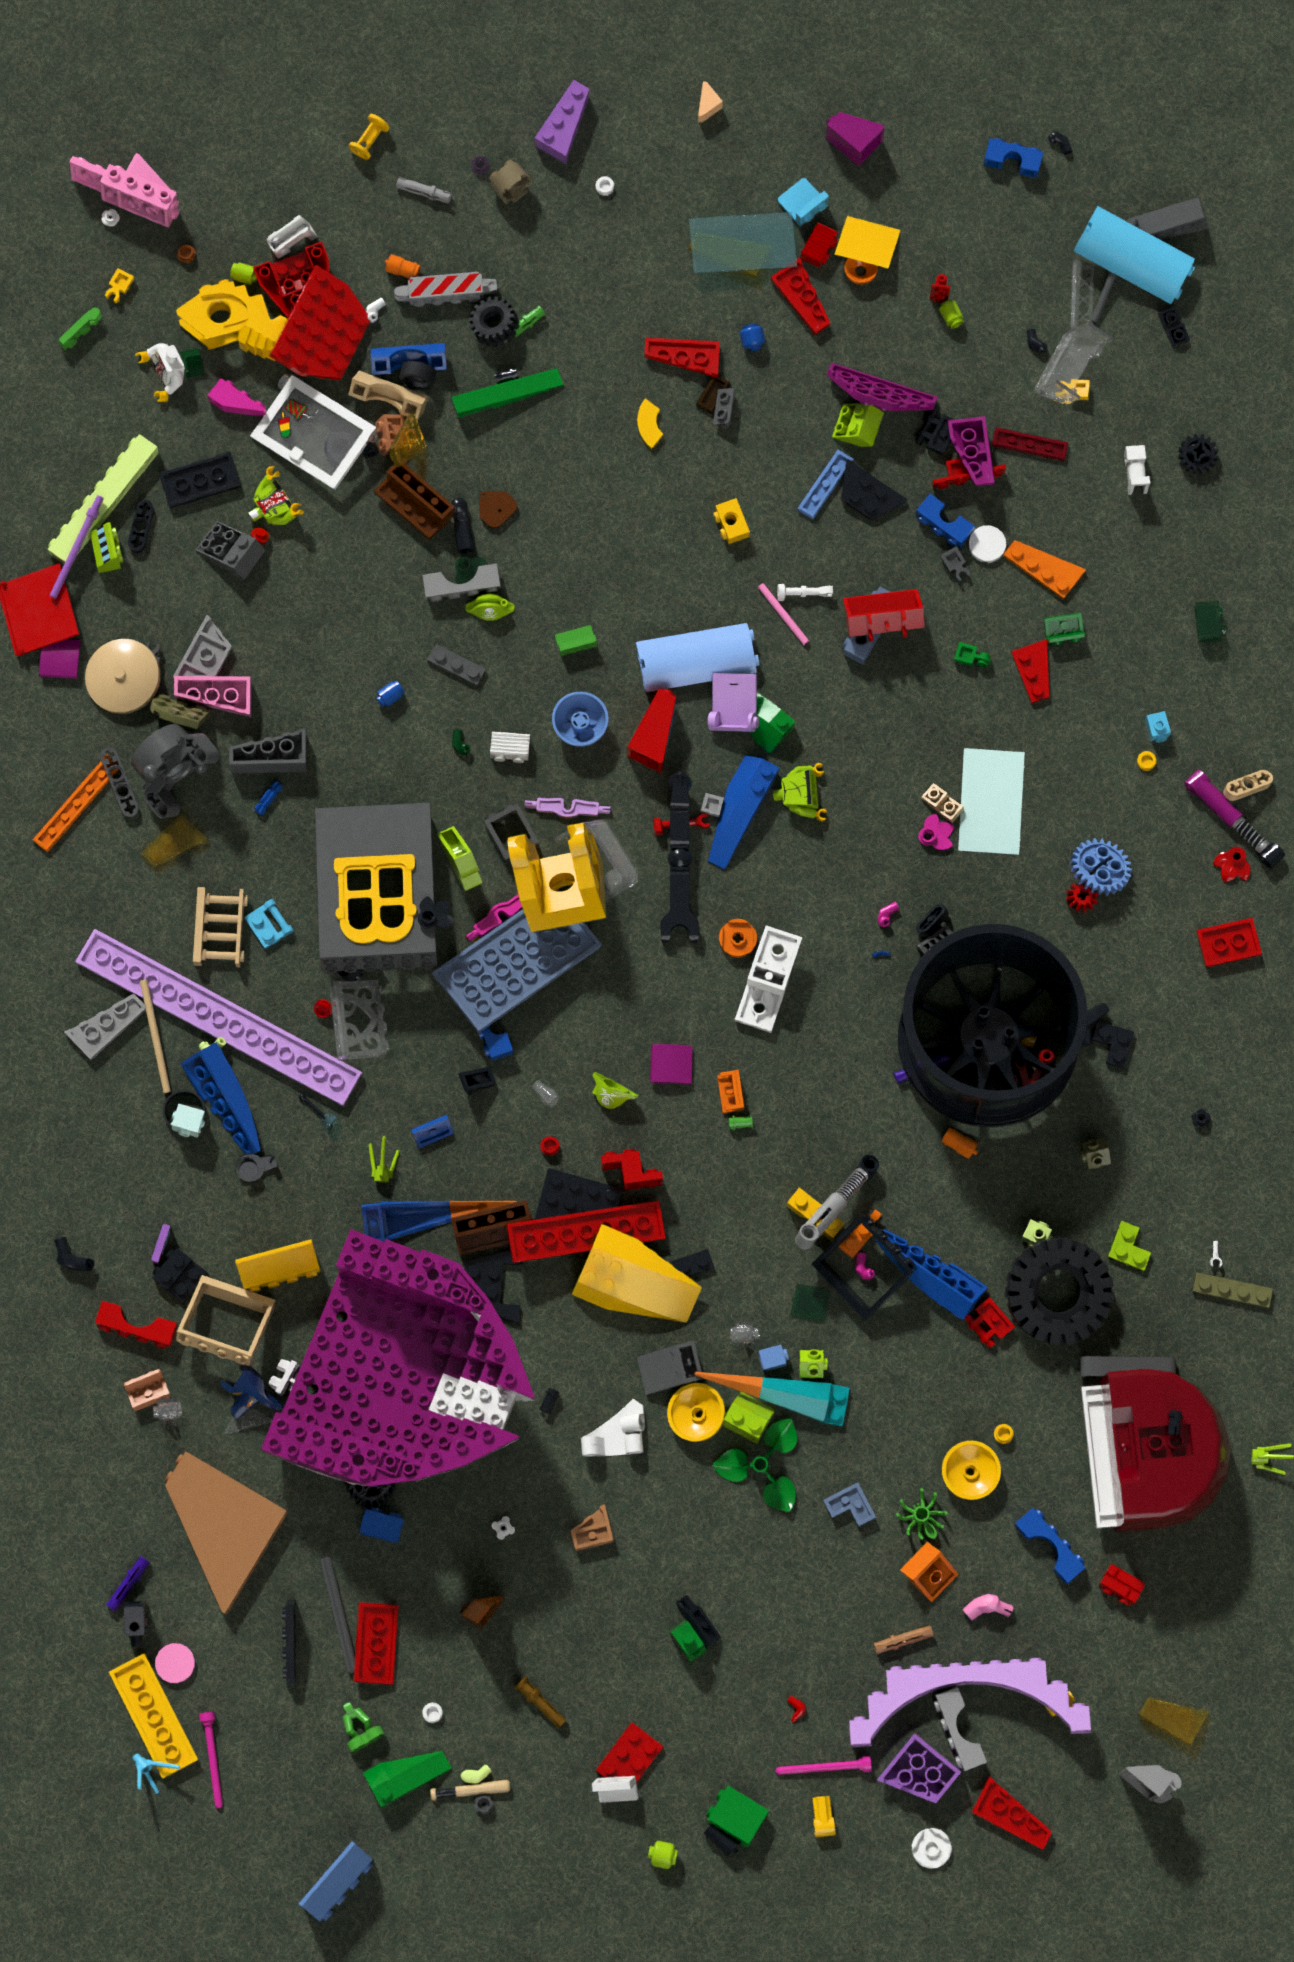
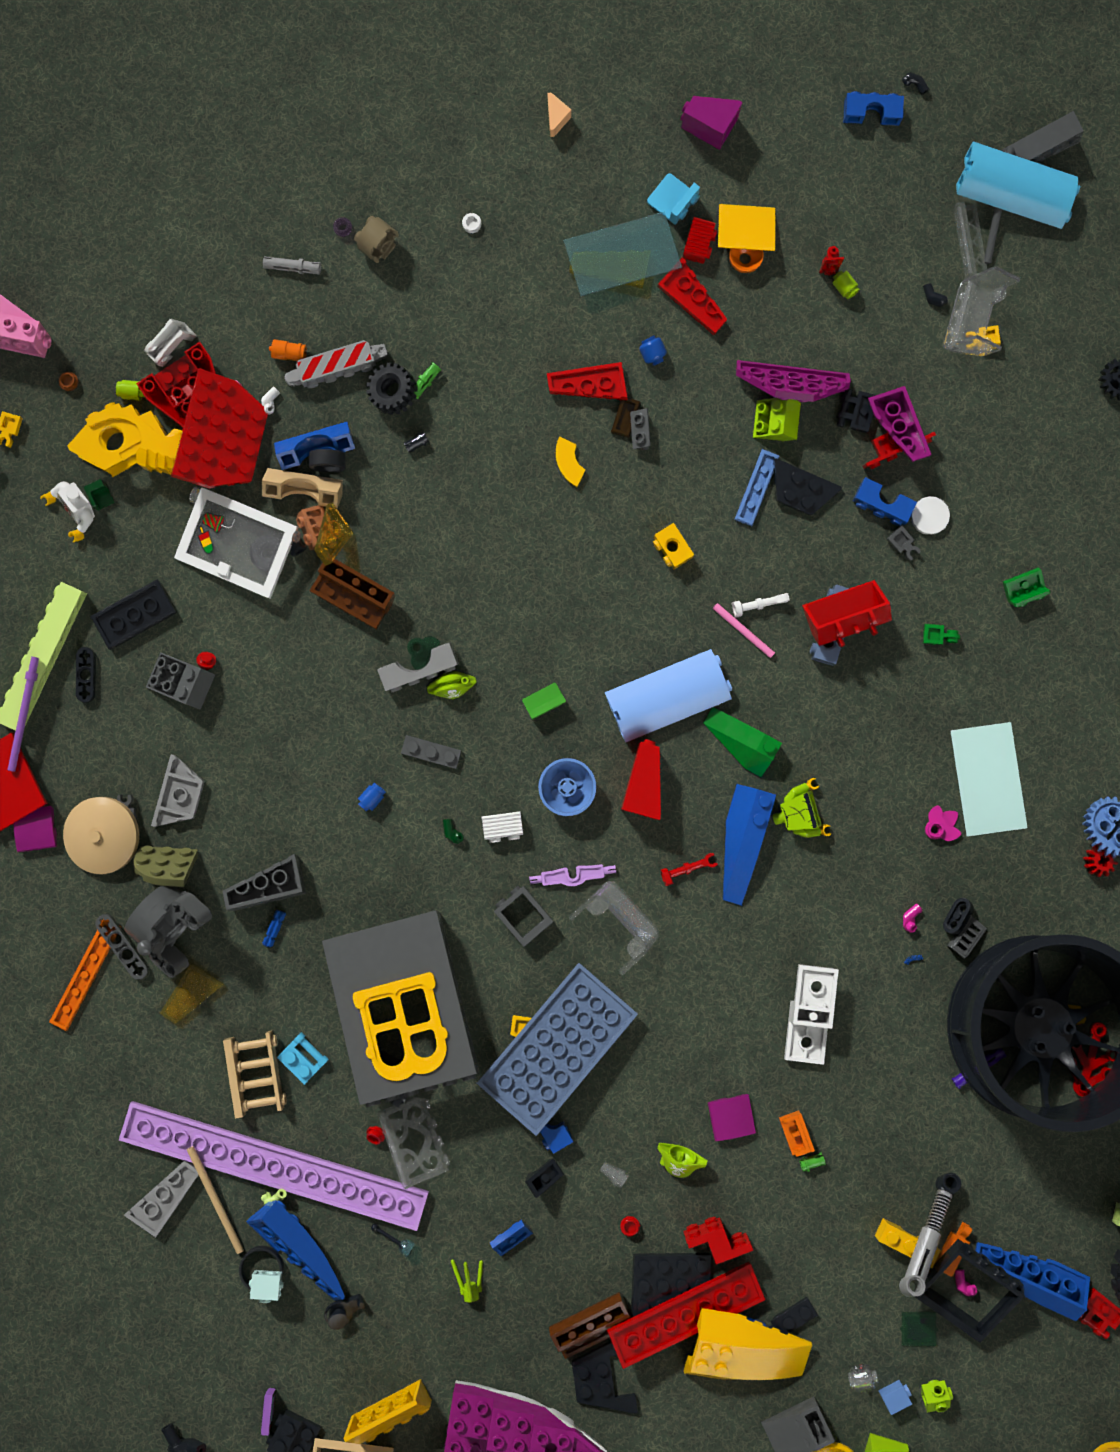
camera: 10 degrees left, 10 degrees up
(105, 550) = (54, 707): lime slope -> none
(217, 692) = (198, 834): bright pink wedge -> none
(231, 400) = (146, 525): dark pink slope -> none
(273, 502) = (211, 623): torso -> none
(369, 136) = (224, 220): yellow hose -> none
(403, 1218) = (497, 1335): blue plate -> none
(436, 912) = (468, 1032): black plate -> none
(460, 858) = (477, 957): lime brick -> none
(462, 526) = (405, 607): black piece -> none
(492, 504) = (430, 578): reddish brown piece -> none
(492, 921) = (525, 1011): dark pink piece -> none
(506, 392) = (419, 459): green slope -> none
(541, 878) = (560, 963): yellow brick -> none
(562, 125) = (416, 166): medium lavender wedge -> none
(679, 861) = (696, 909): black piece -> none
(712, 805) = (715, 843): light grey plate -> none
(734, 704) = (716, 738): lavender door -> none
(746, 931) = (778, 982): orange plate -> none
(812, 1399) = (940, 1431): teal plate -> none
(942, 803) = (942, 792): tan slope -> none
(962, 1144) = (1034, 1138): orange piece -> none
(1029, 444) = (950, 403): dark red tile -> none
(1033, 670) = (1003, 636): red wing -> none
(1047, 569) = (994, 529): orange wing -> none
(1134, 462) = (1062, 409): white piece -> none
(1173, 326) = (1067, 252): black slope -> none

